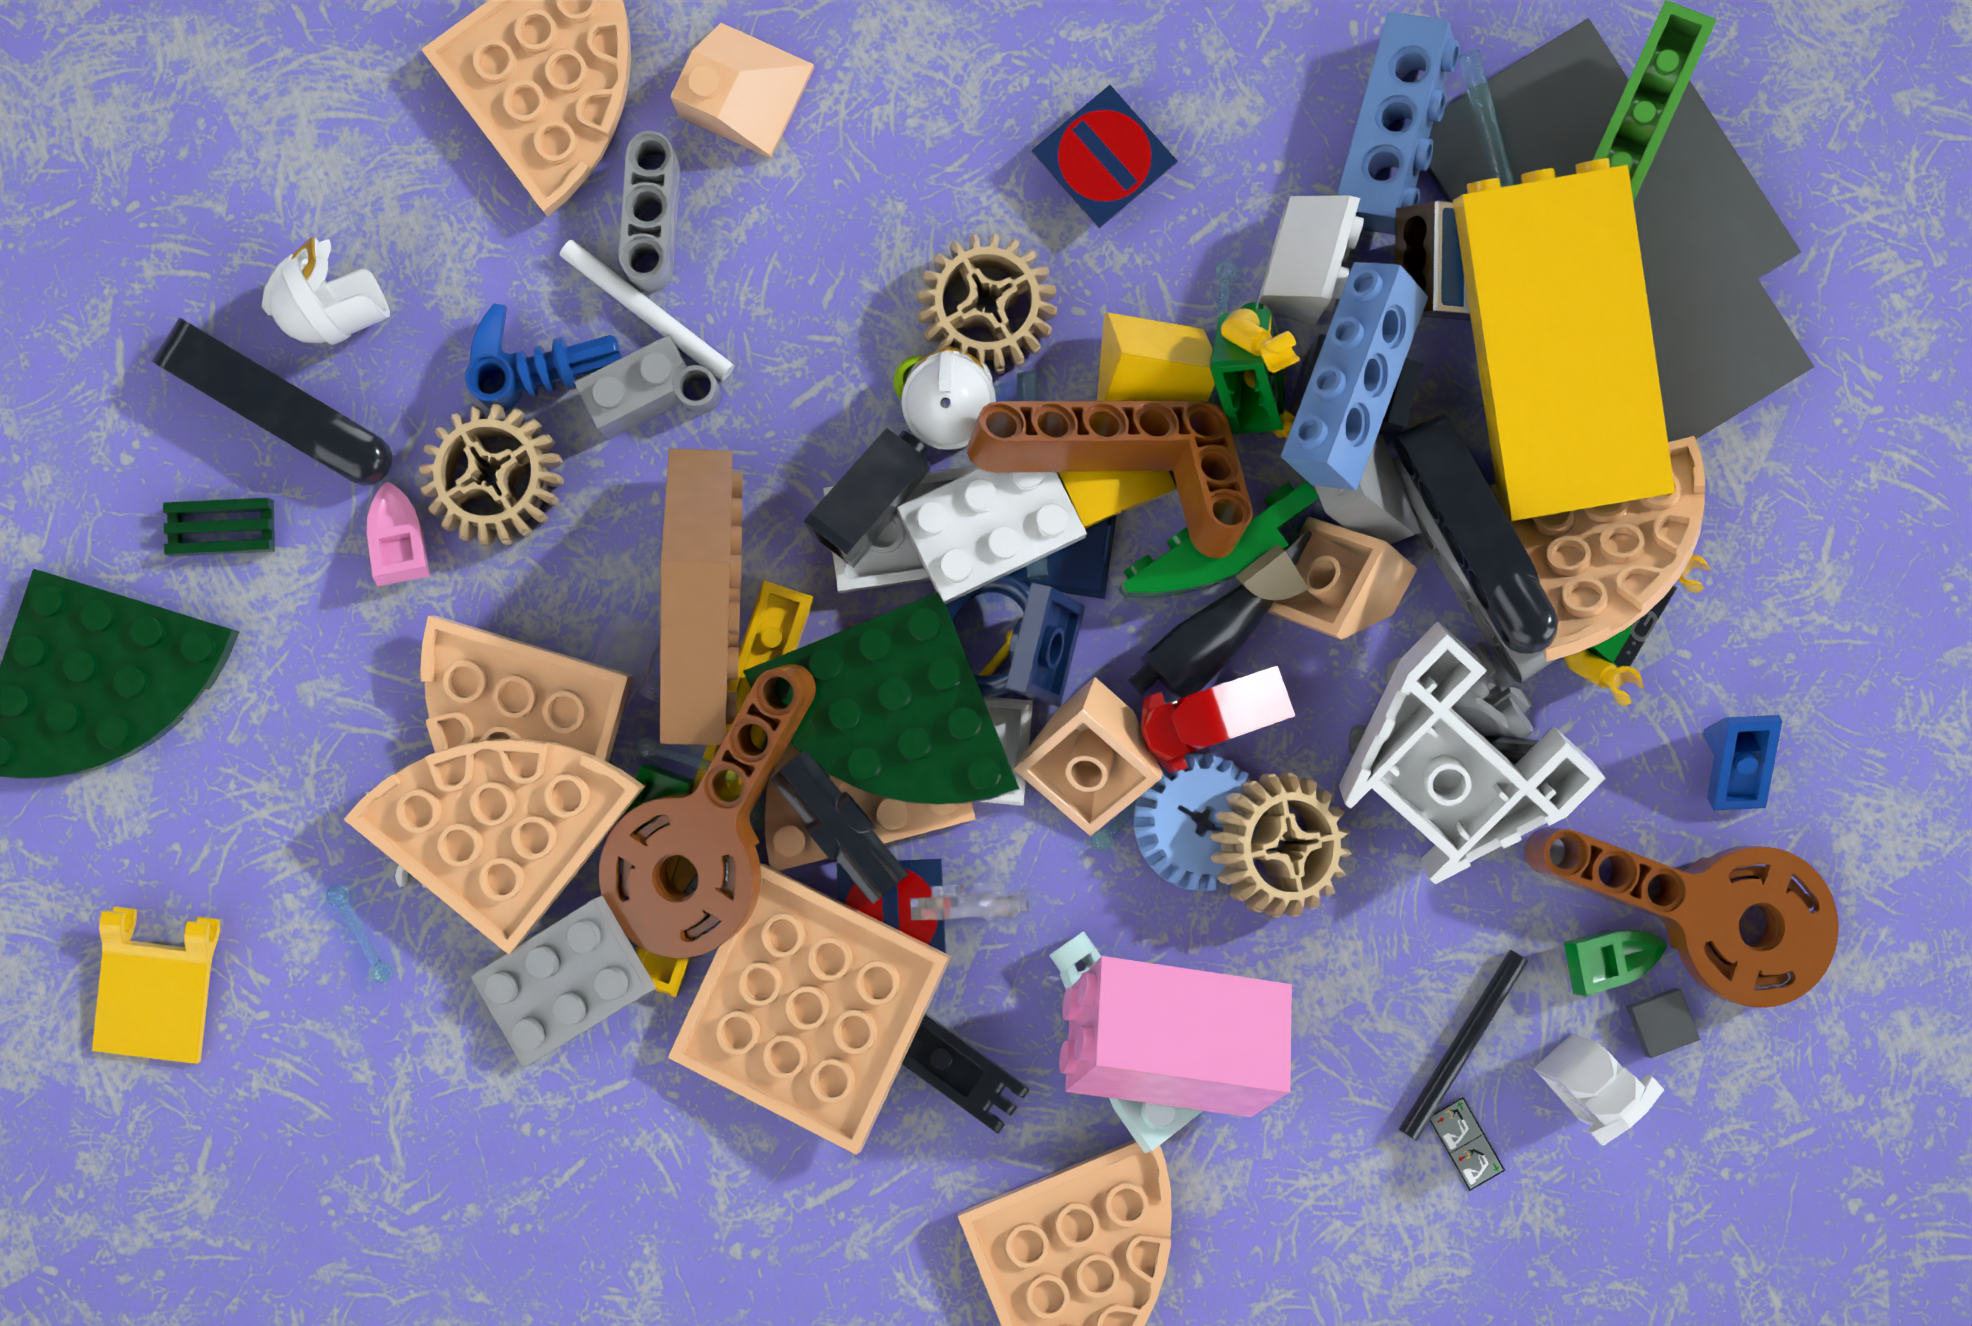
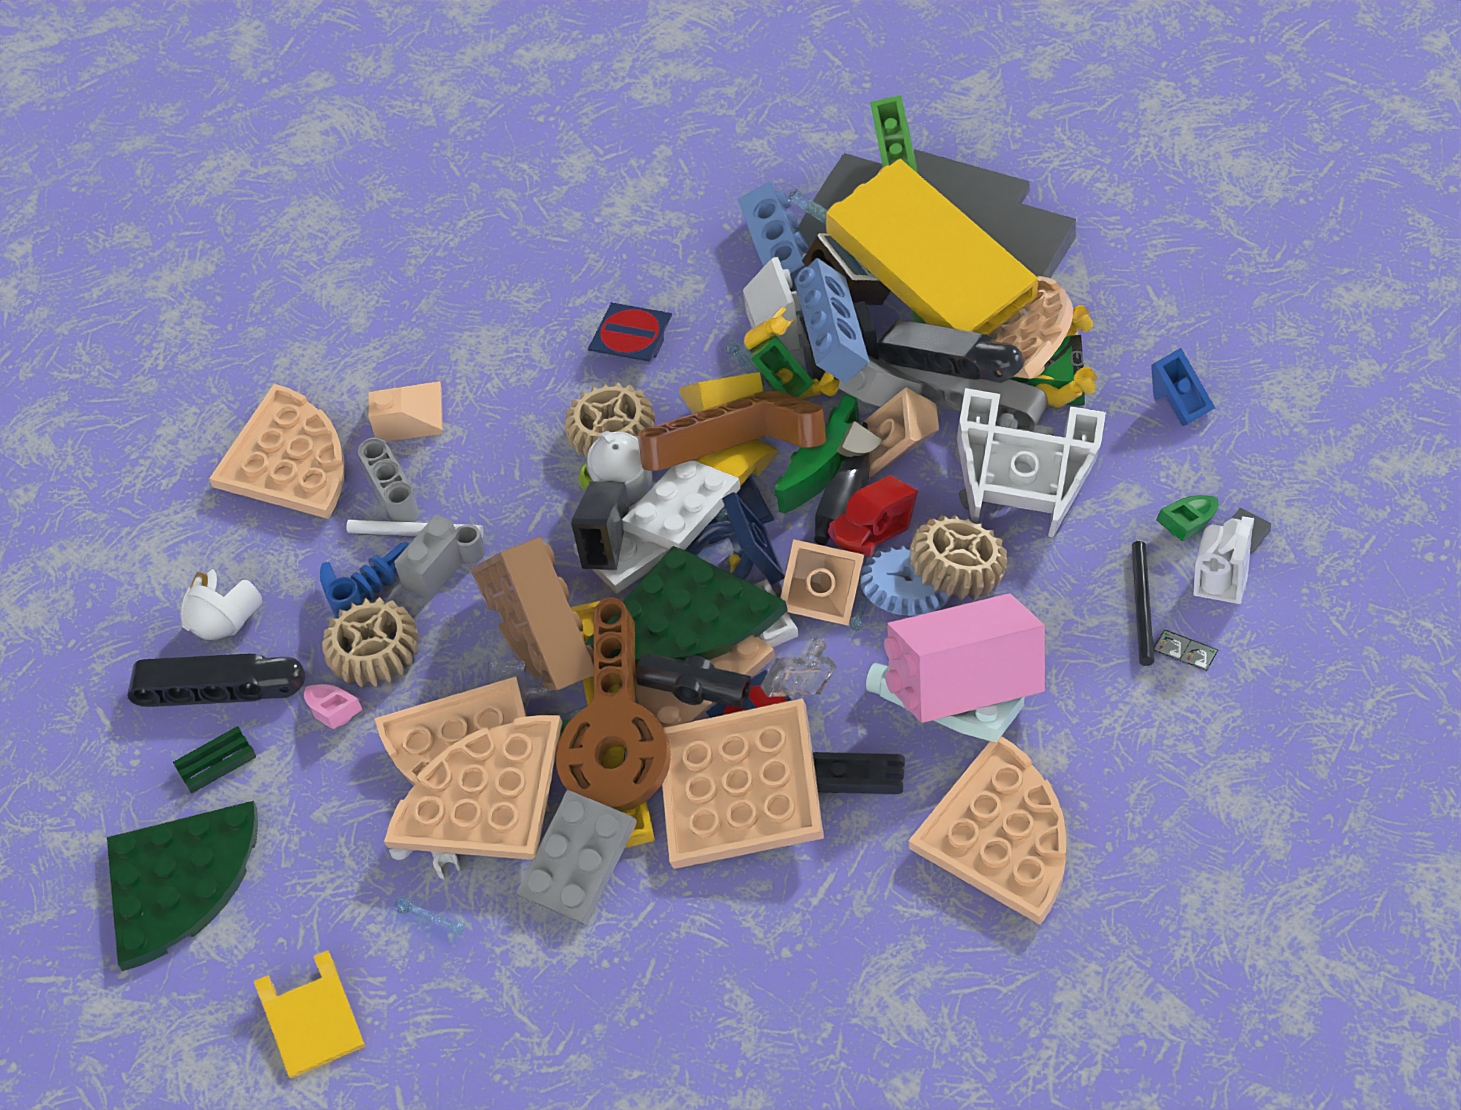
camera: 20 degrees left, 35 degrees down
(1707, 907) = (1212, 462): dark orange beam -> none

